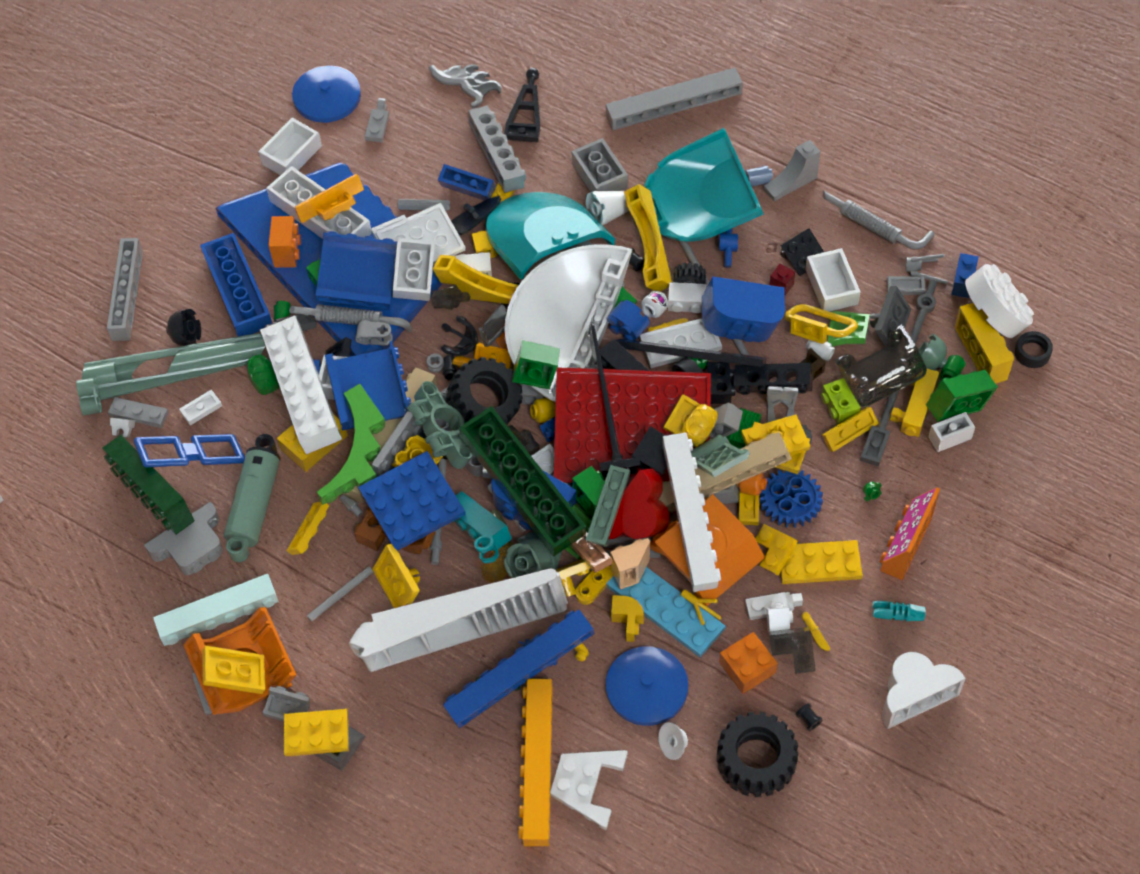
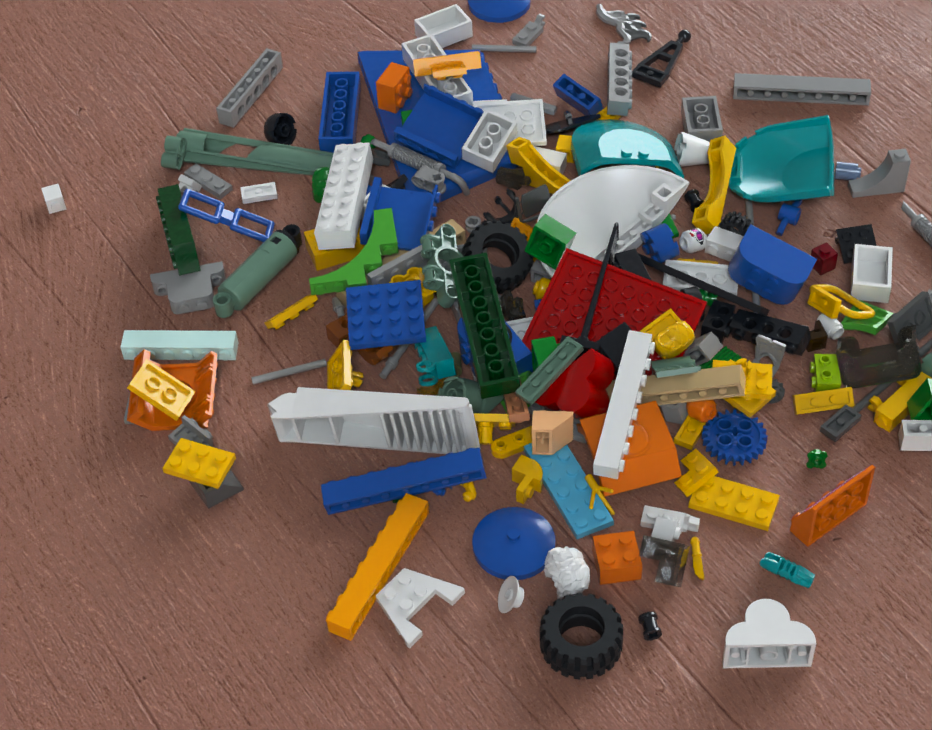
camera: 25 degrees right, 10 degrees down
(361, 149) = (505, 48): none -> light grey bar
(715, 695) = (567, 570): none -> white hair

